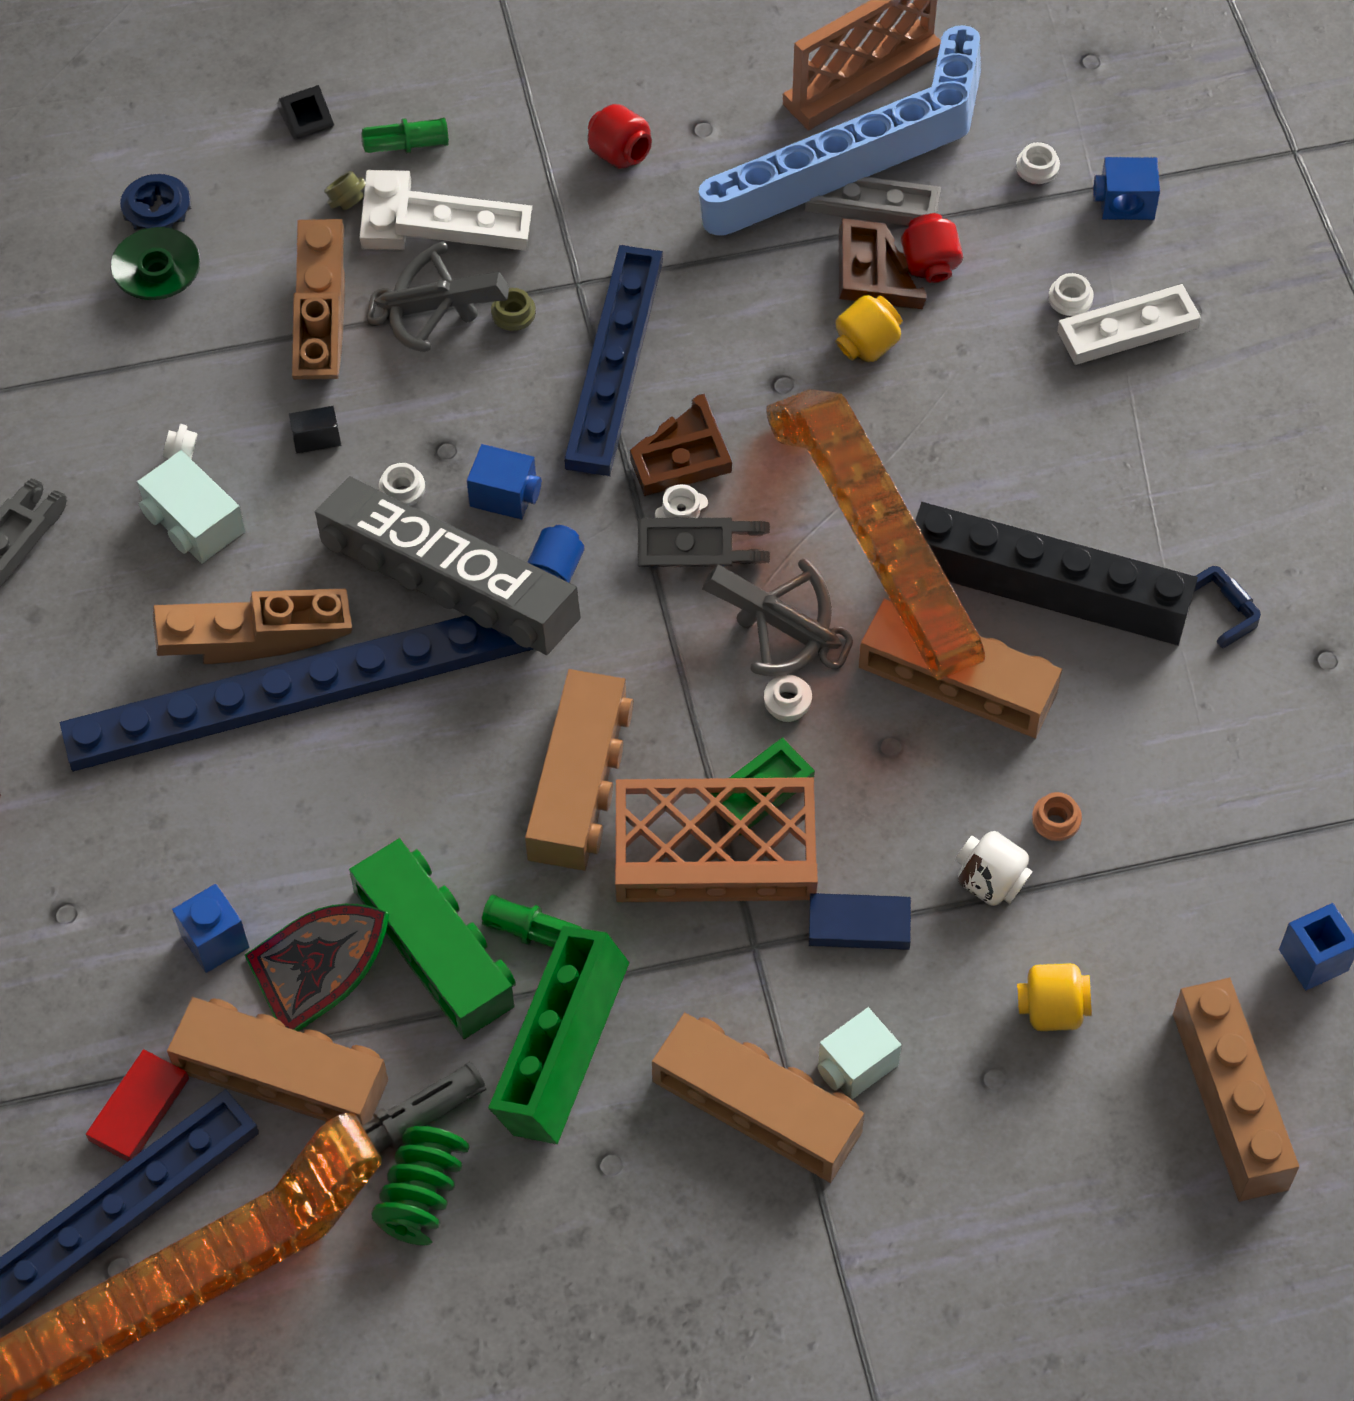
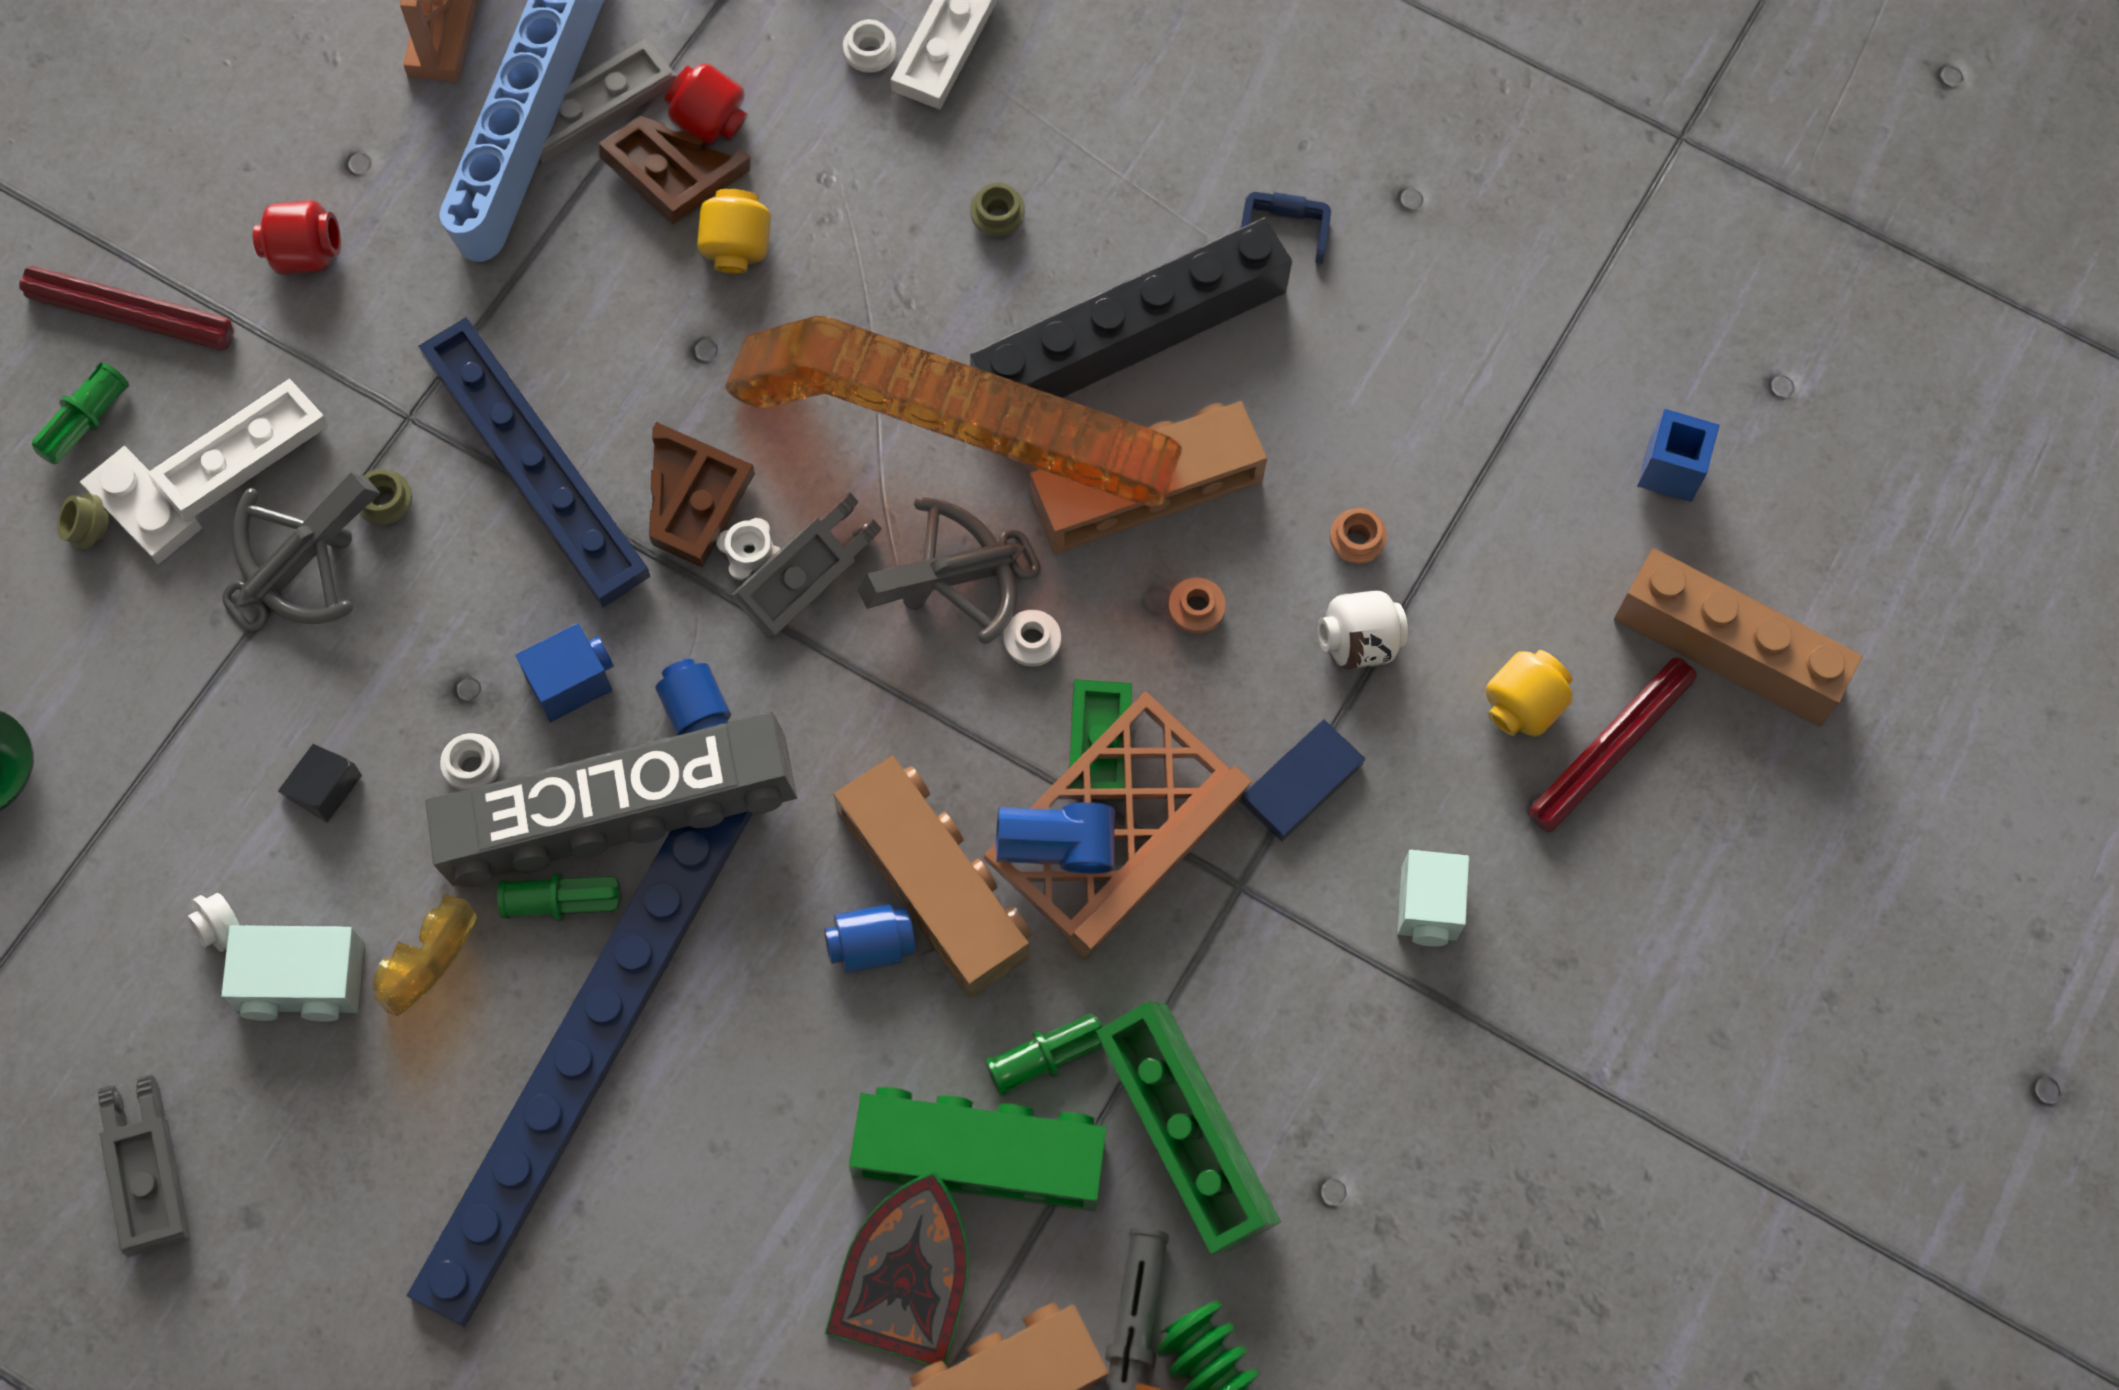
camera: 50 degrees left, 10 degrees up
(210, 928) = (778, 1342): blue brick -> none
(247, 565) = (413, 970): none -> clear yellow slope
(262, 628) = (488, 1029): medium nougat slope -> none
(318, 300) = (186, 654): medium nougat slope -> none
(366, 594) = (558, 896): none -> green axle
(492, 104) = (127, 307): none -> dark red axle
(505, 770) = (870, 938): none -> blue brick
(671, 813) = (1075, 837): none -> blue piece
(758, 1096) = (1394, 1012): medium nougat brick -> none
(904, 778) = (1197, 620): none -> nougat plate
(1044, 437) = (997, 197): none -> olive plate
(1081, 1080) = (1612, 744): none -> dark red axle

